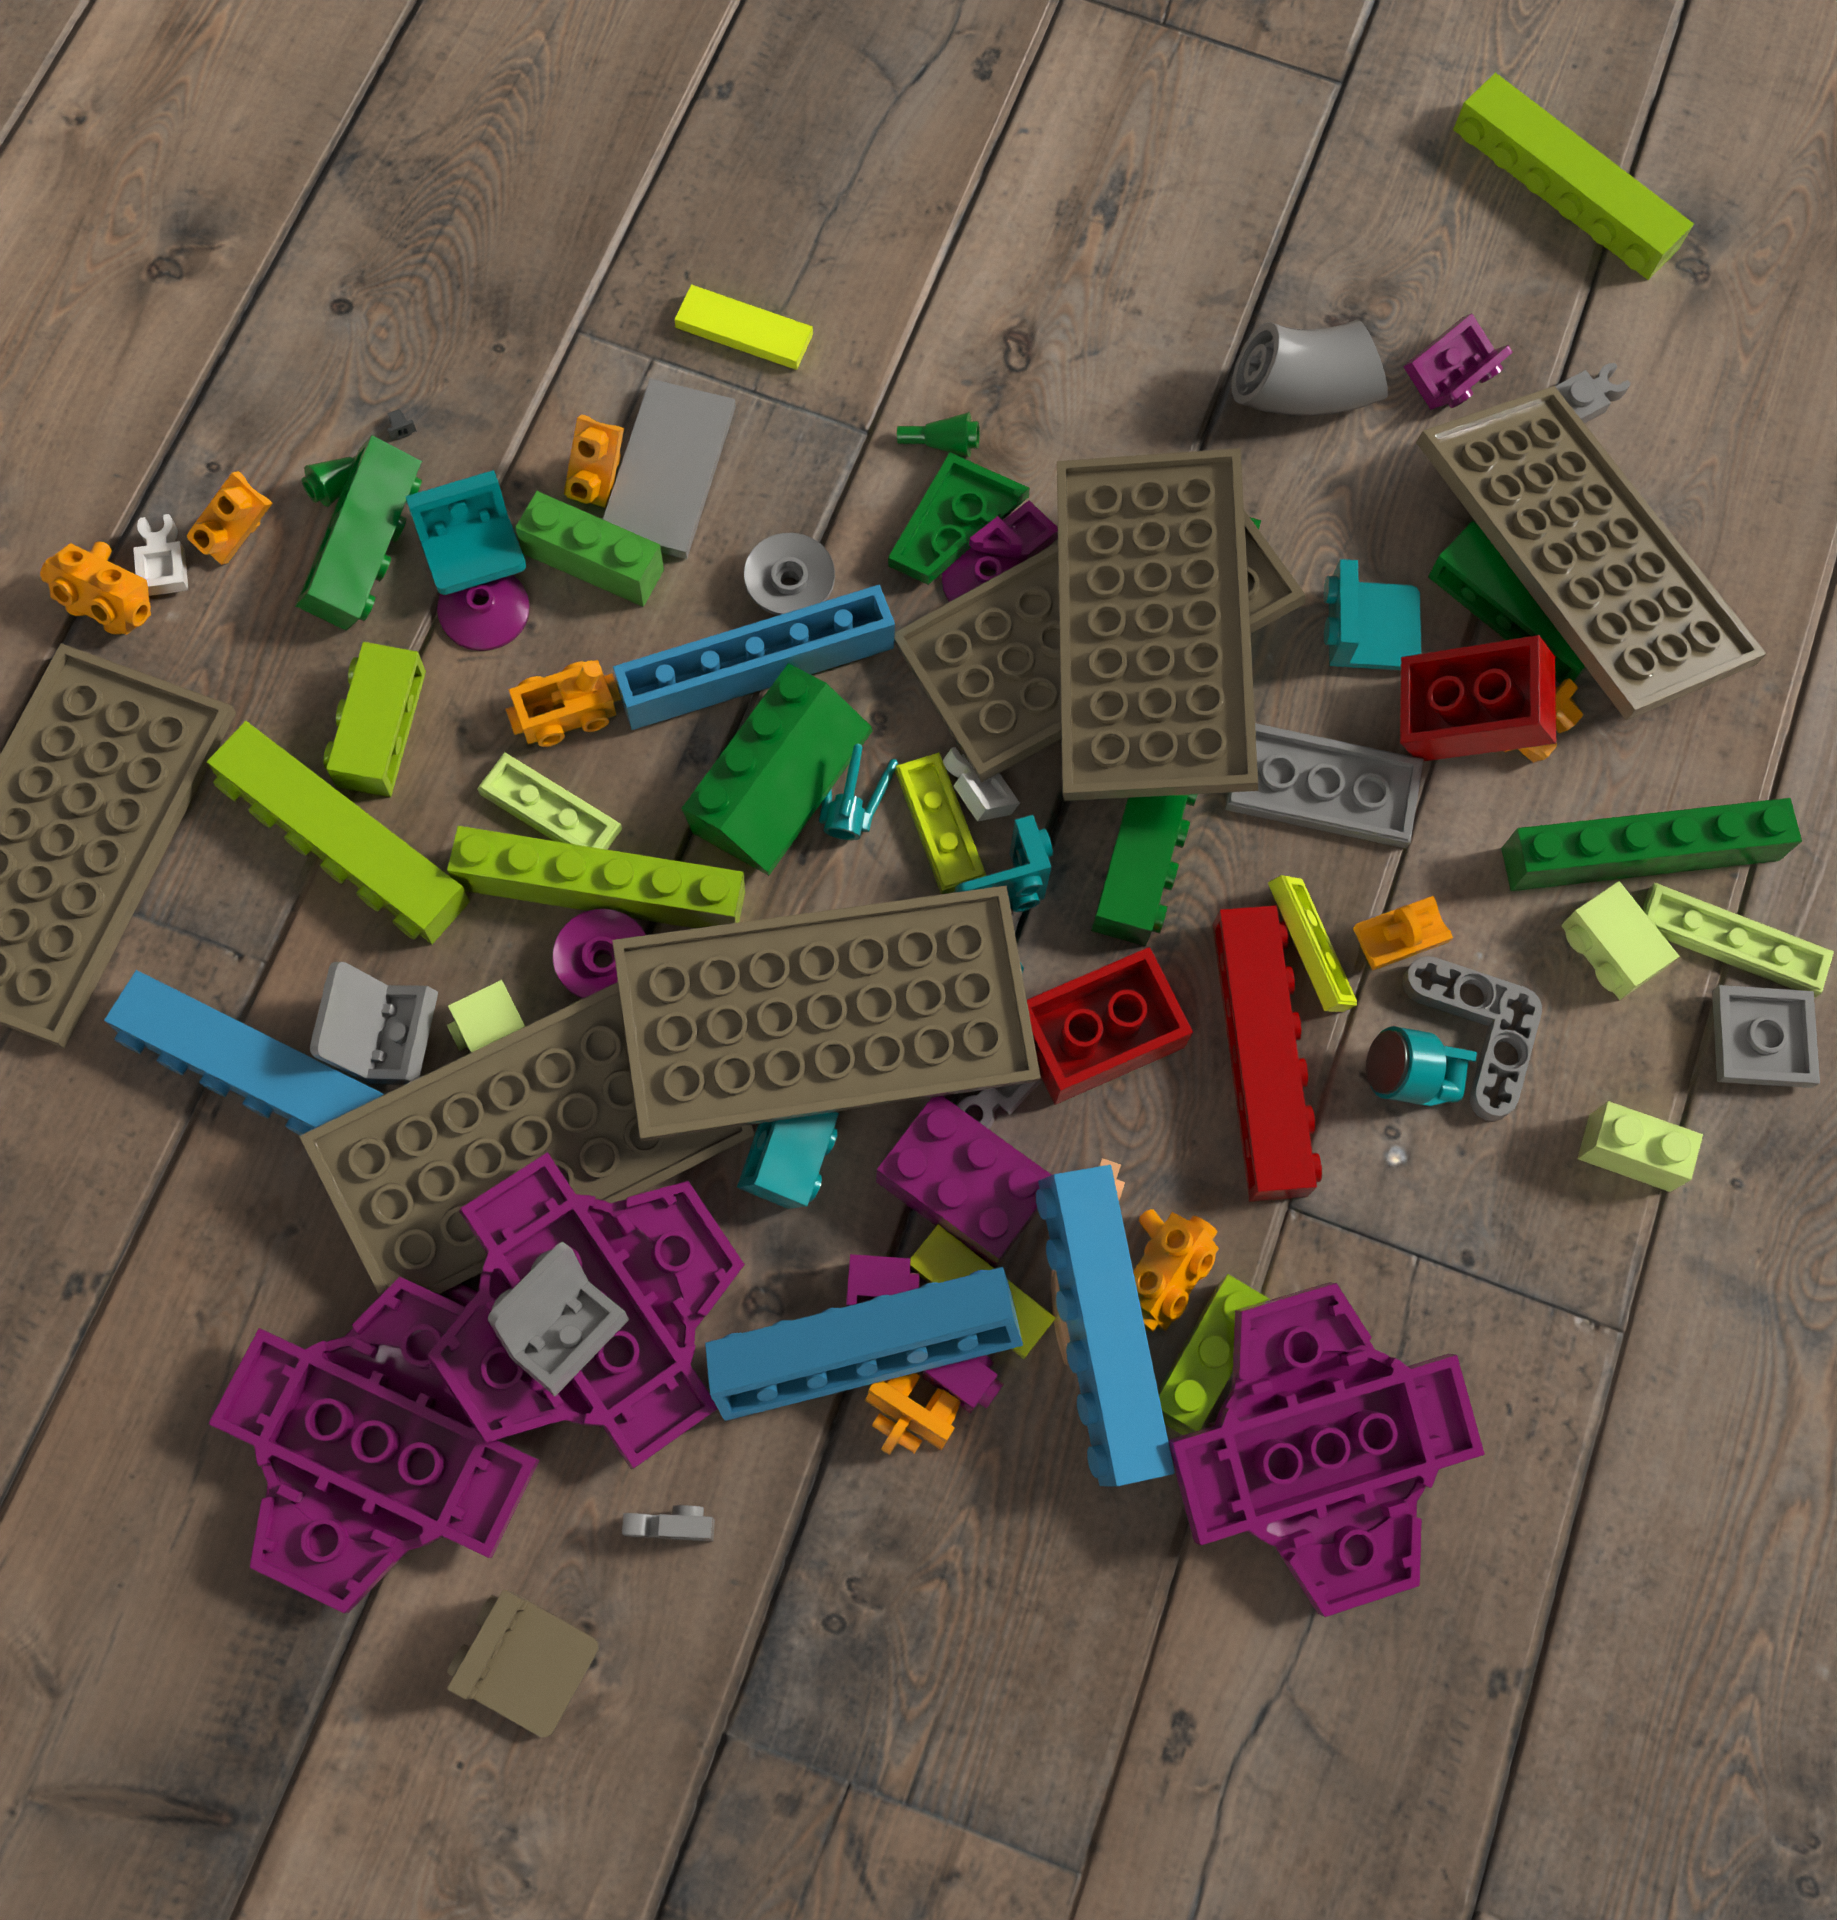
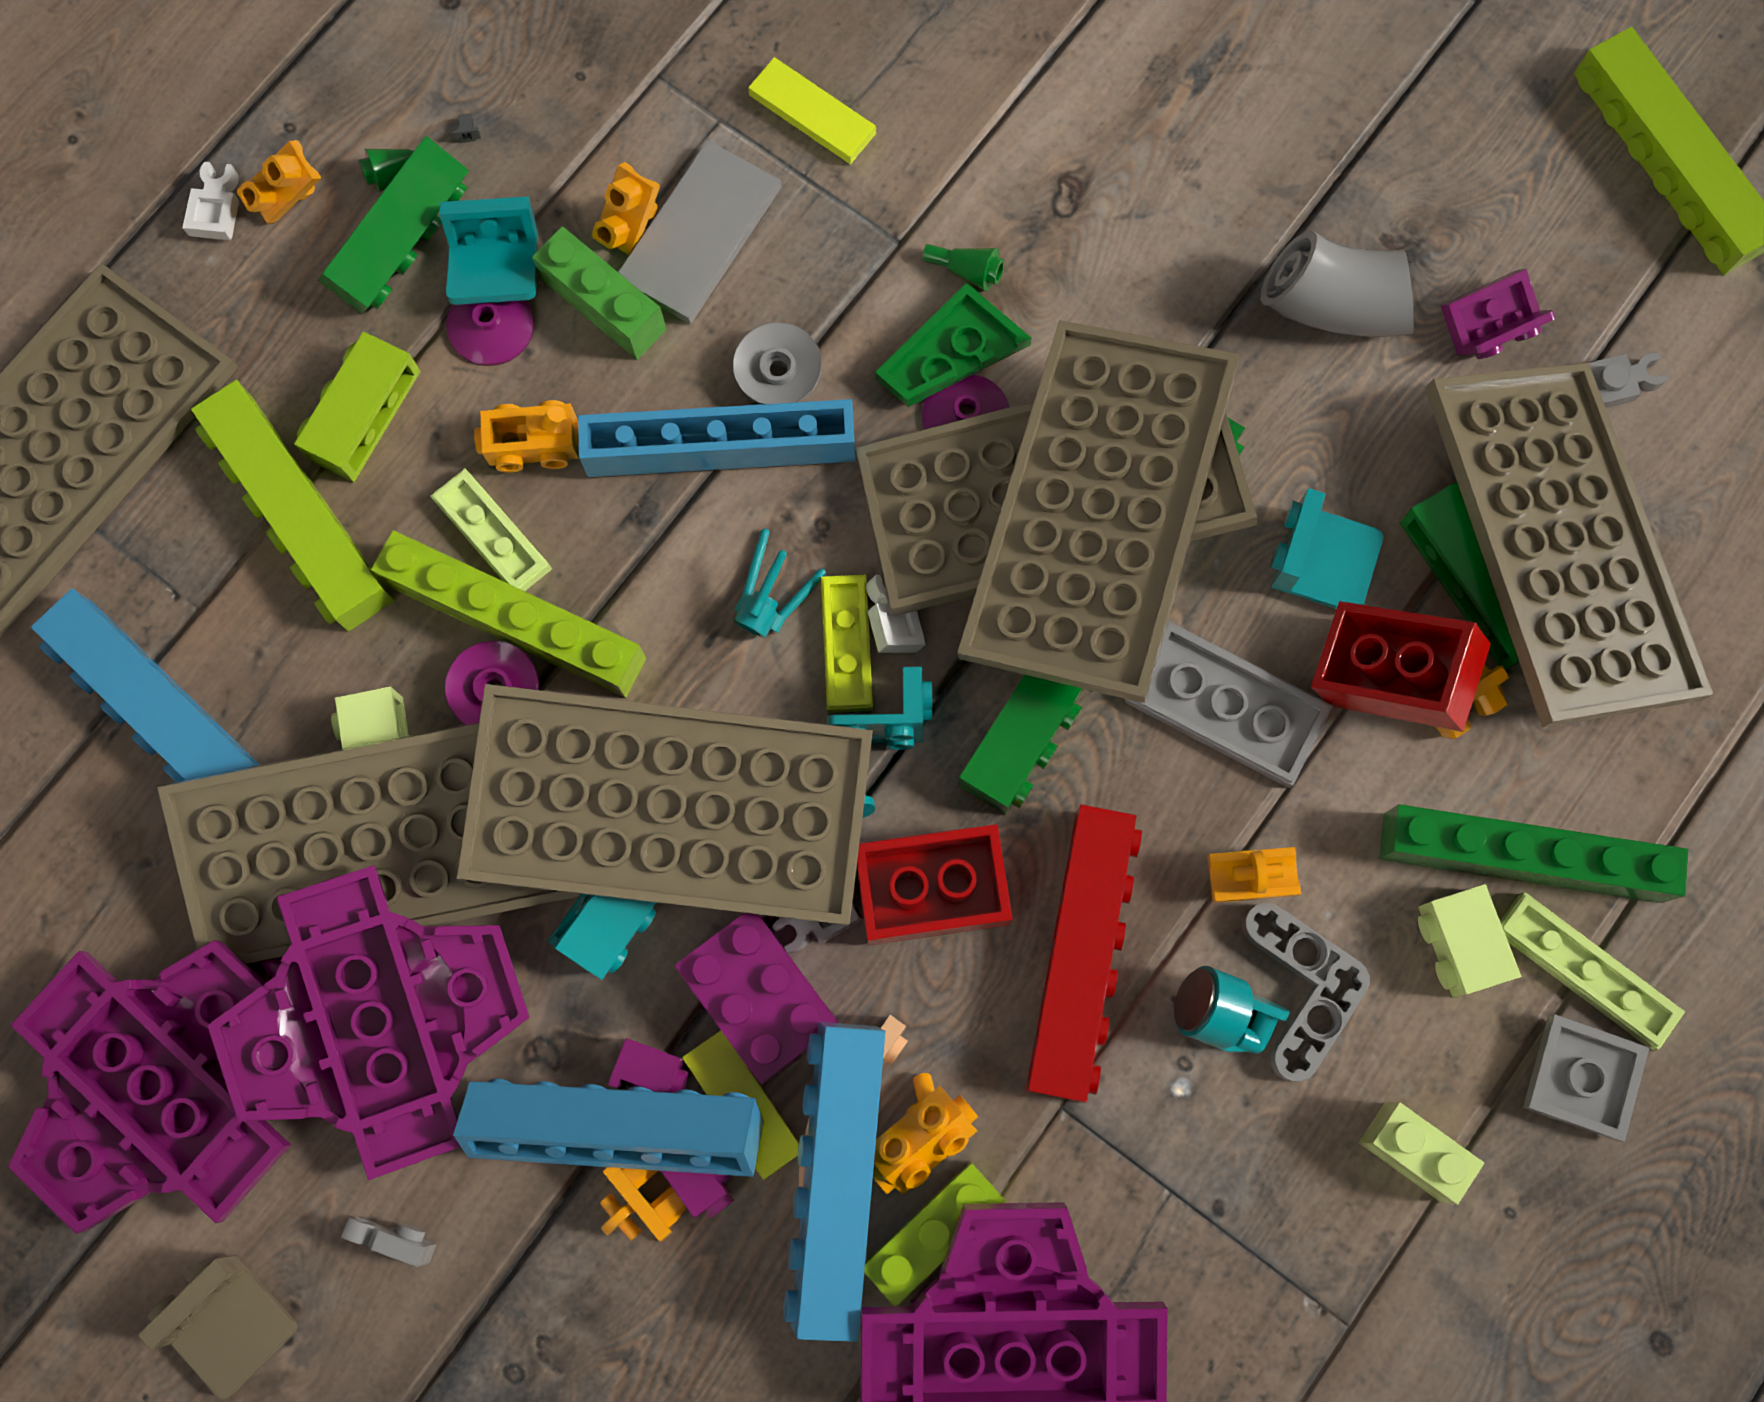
camera: 25 degrees right, 5 degrees up
(97, 588) = (147, 218): light orange brick -> none
(372, 1026) = (262, 696): light grey bracket -> none
(555, 1319) = (325, 1028): light grey bracket -> none
(776, 770) = (705, 552): green slope -> none
(1018, 535) = (1006, 382): magenta slope -> none
(1313, 944) = (1163, 860): neon yellow tile -> none

